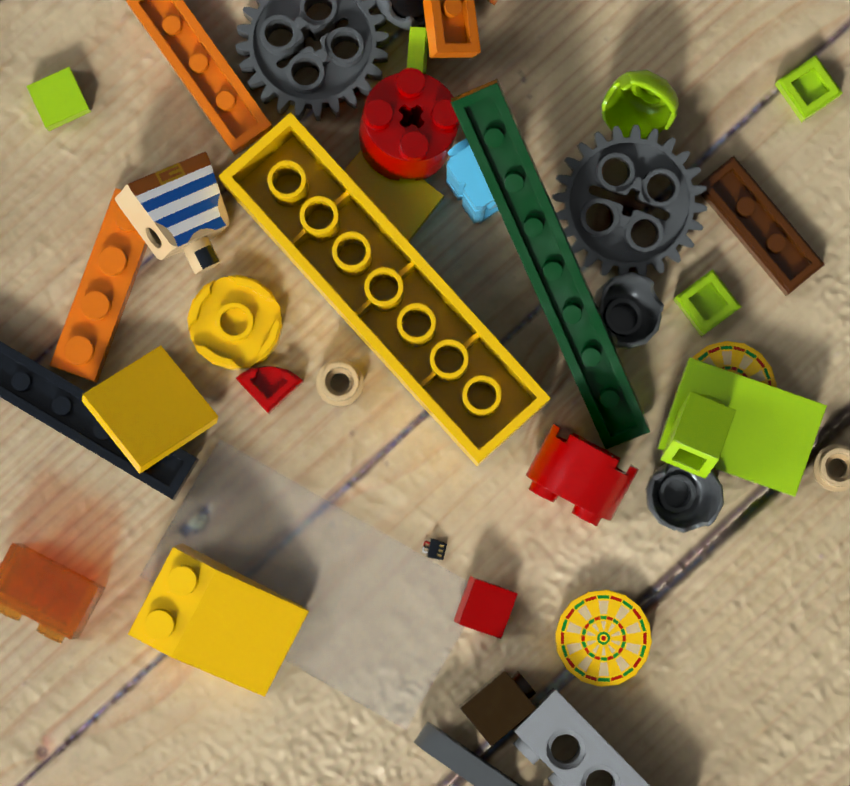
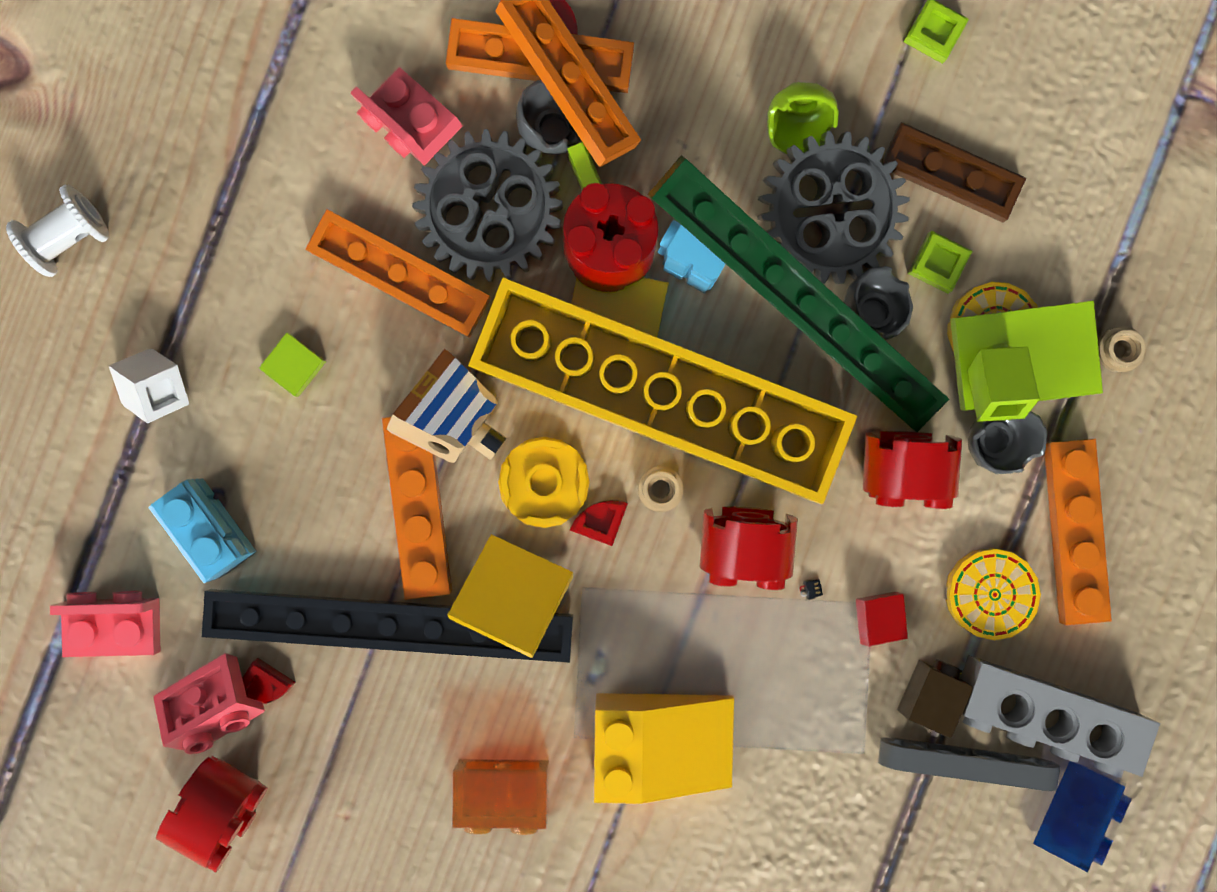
camera: 30 degrees left, 5 degrees up
(391, 471) = (748, 547): none -> red brick
(712, 619) = (1077, 532): none -> orange plate

